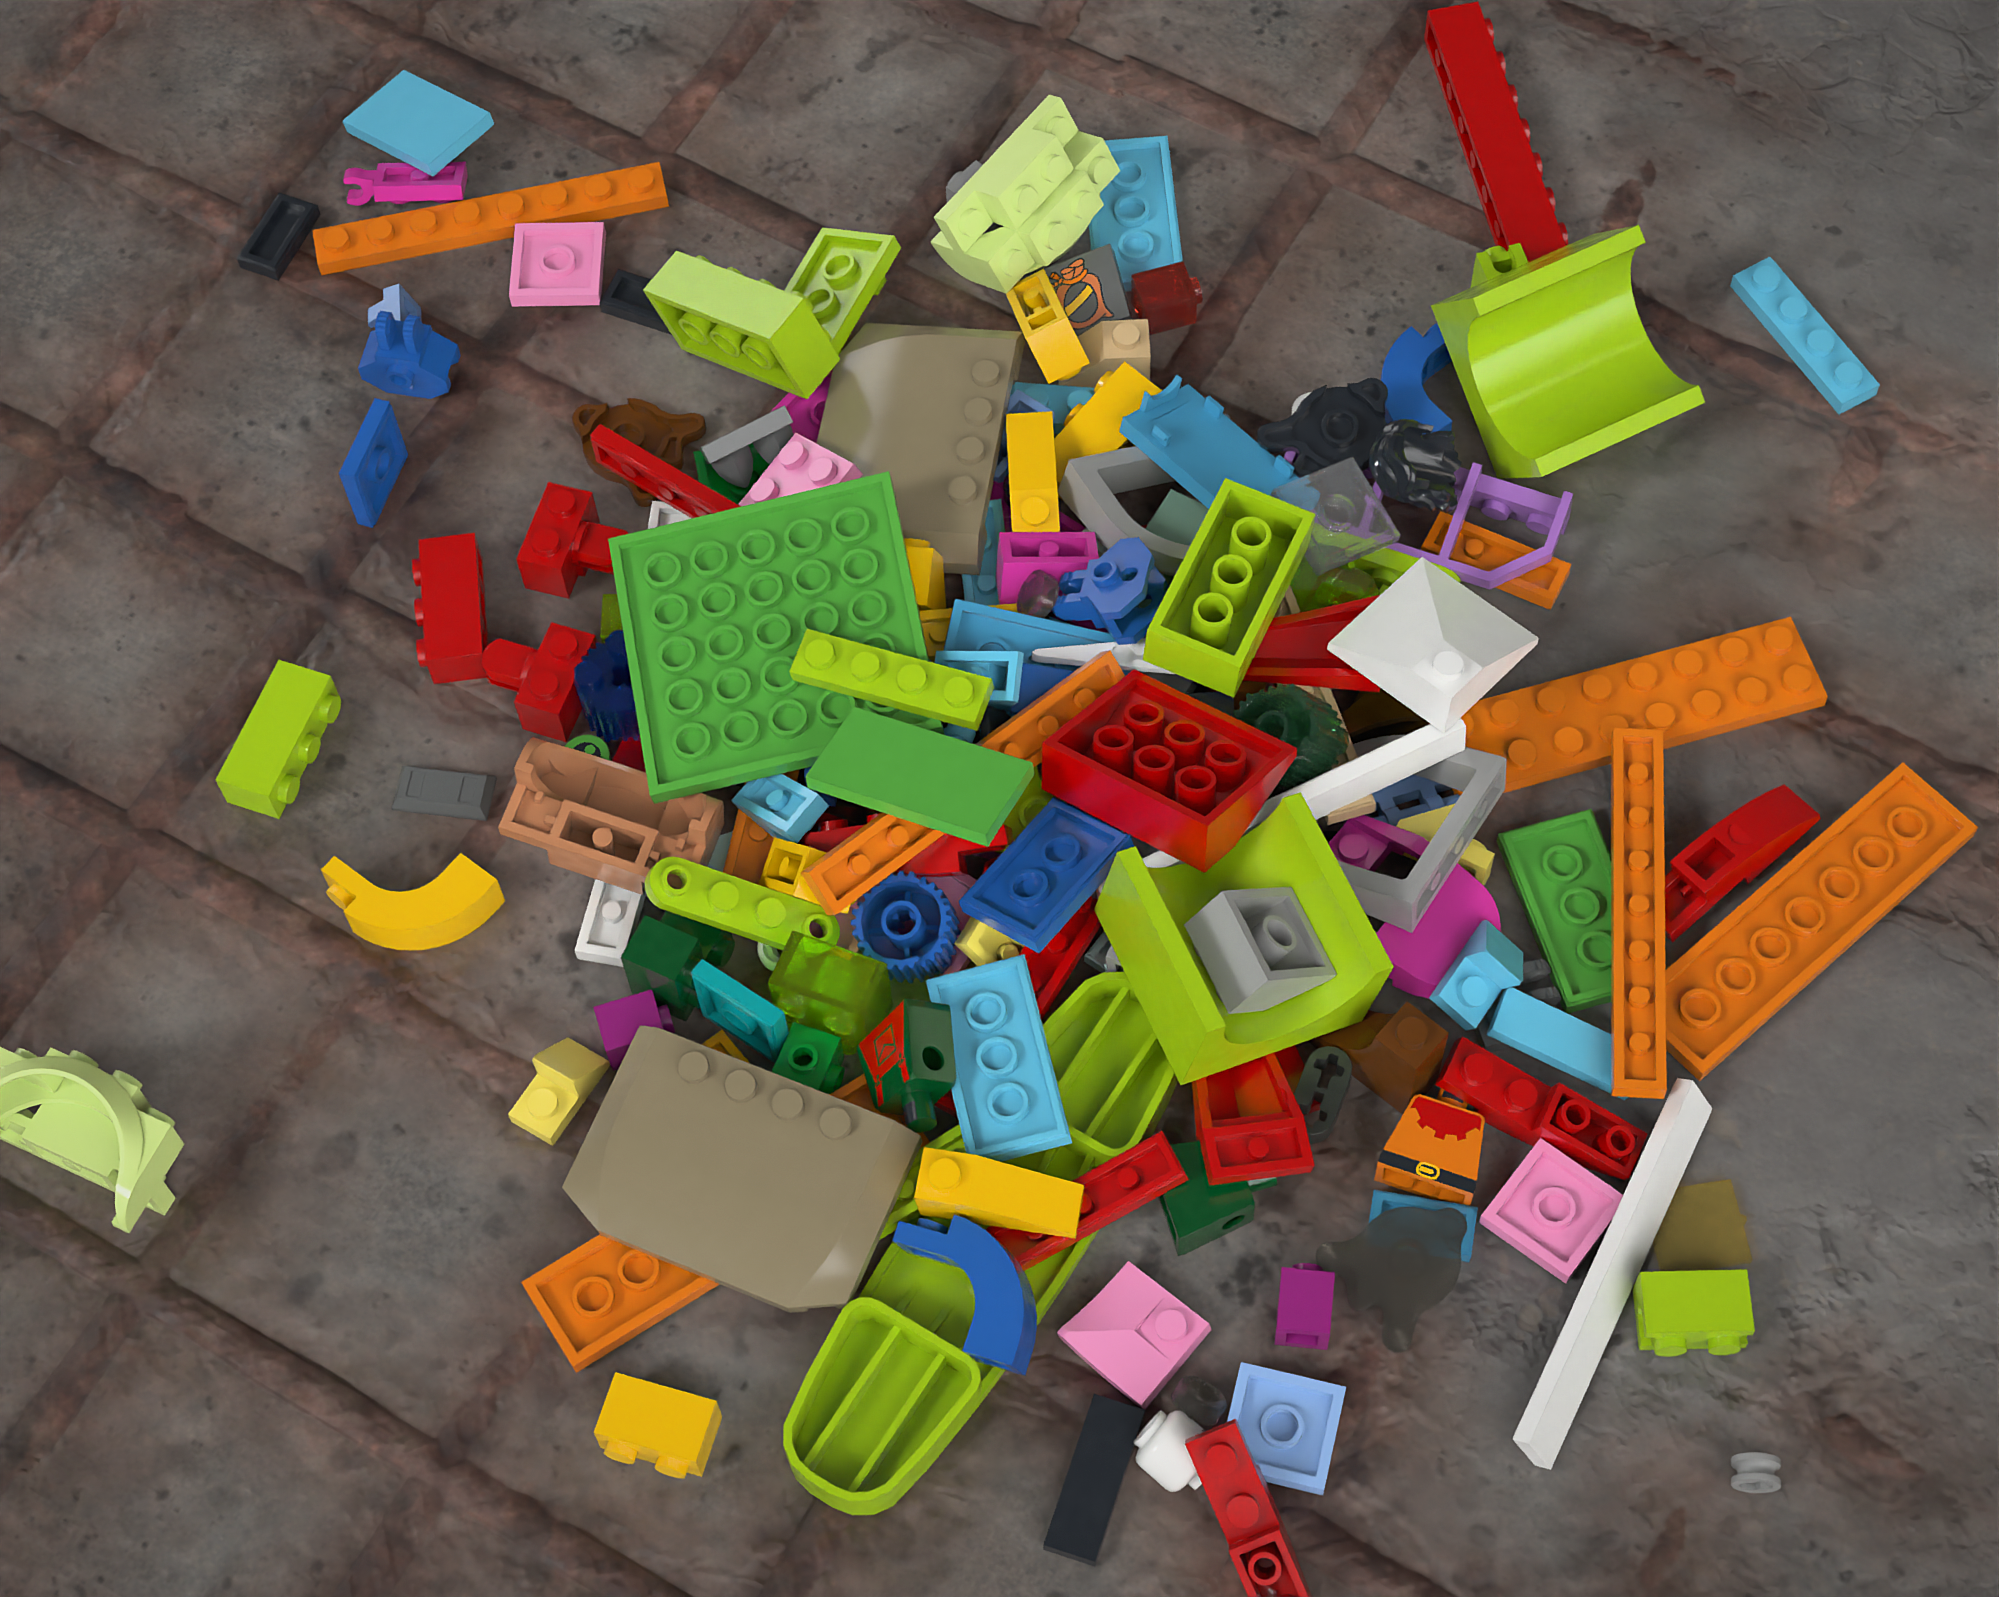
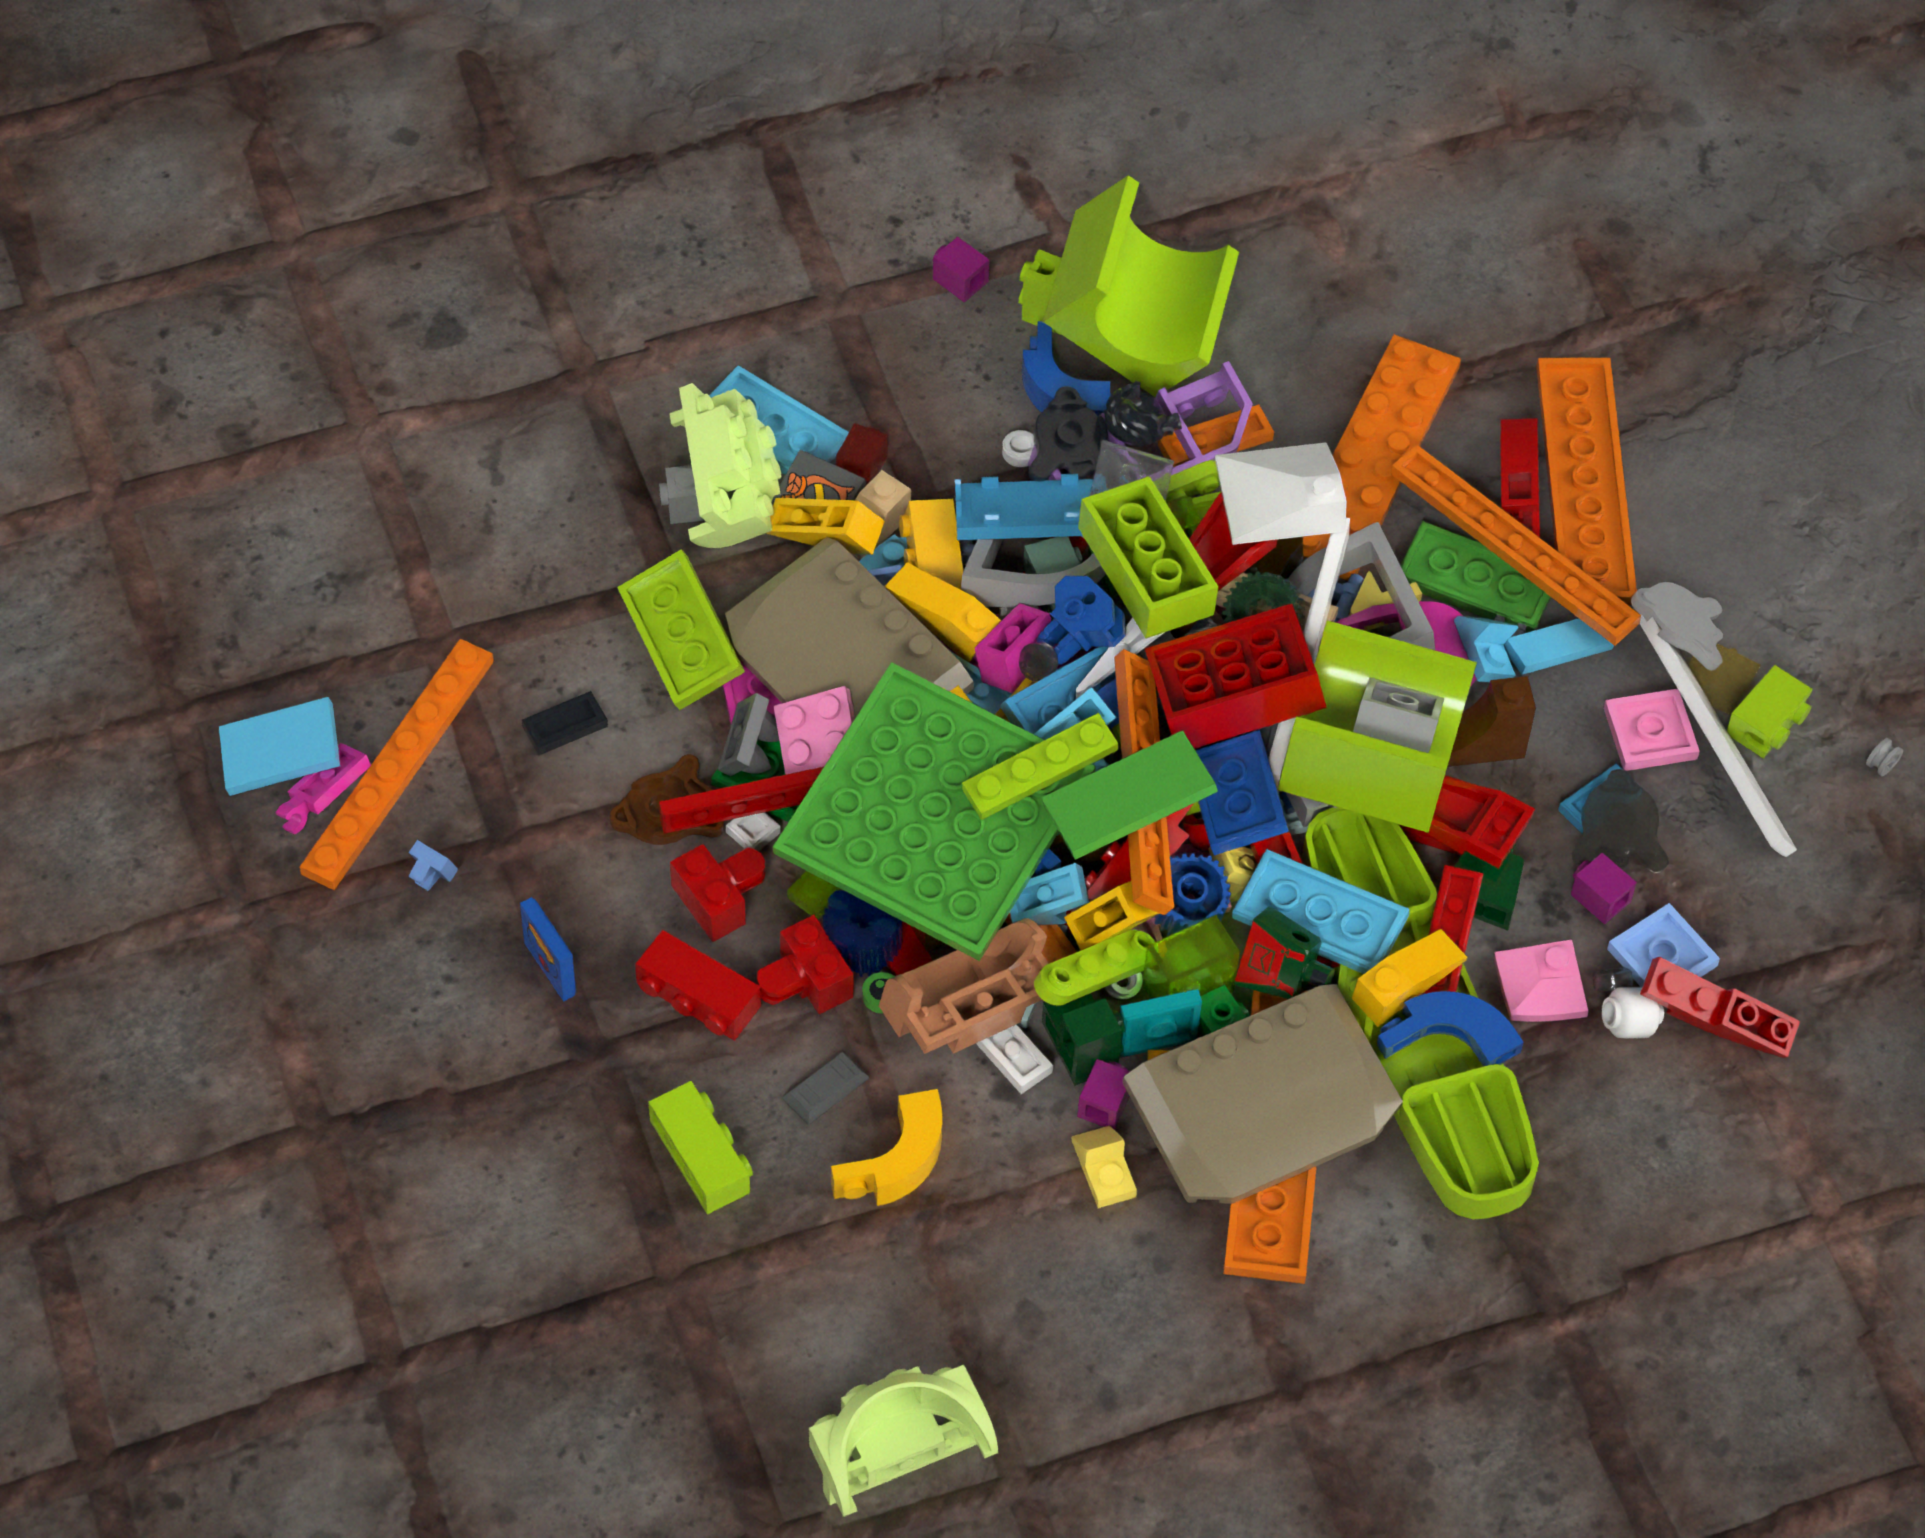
camera: 55 degrees left, 5 degrees down
(278, 236) = (277, 891): black tile -> none
(407, 355) = (476, 878): blue hinge -> none
(557, 264) = (482, 749): bright pink plate -> none
(657, 1426) = (1383, 1259): yellow brick -> none
(743, 323) = (668, 672): lime brick -> none
(1094, 1480) = (1610, 1068): black tile -> none
(1330, 1098) = (1487, 775): pearl dark grey beam -> none
(1434, 1150) = (1565, 753): orange torso -> none
(1460, 215) = (960, 269): none -> magenta brick
(1492, 131) = (921, 208): red brick -> none
(1534, 1110) = (1584, 692): red slope -> none
(1714, 1137) = (1683, 620): none -> light grey tile
(1804, 335) = (1213, 180): medium azure plate -> none

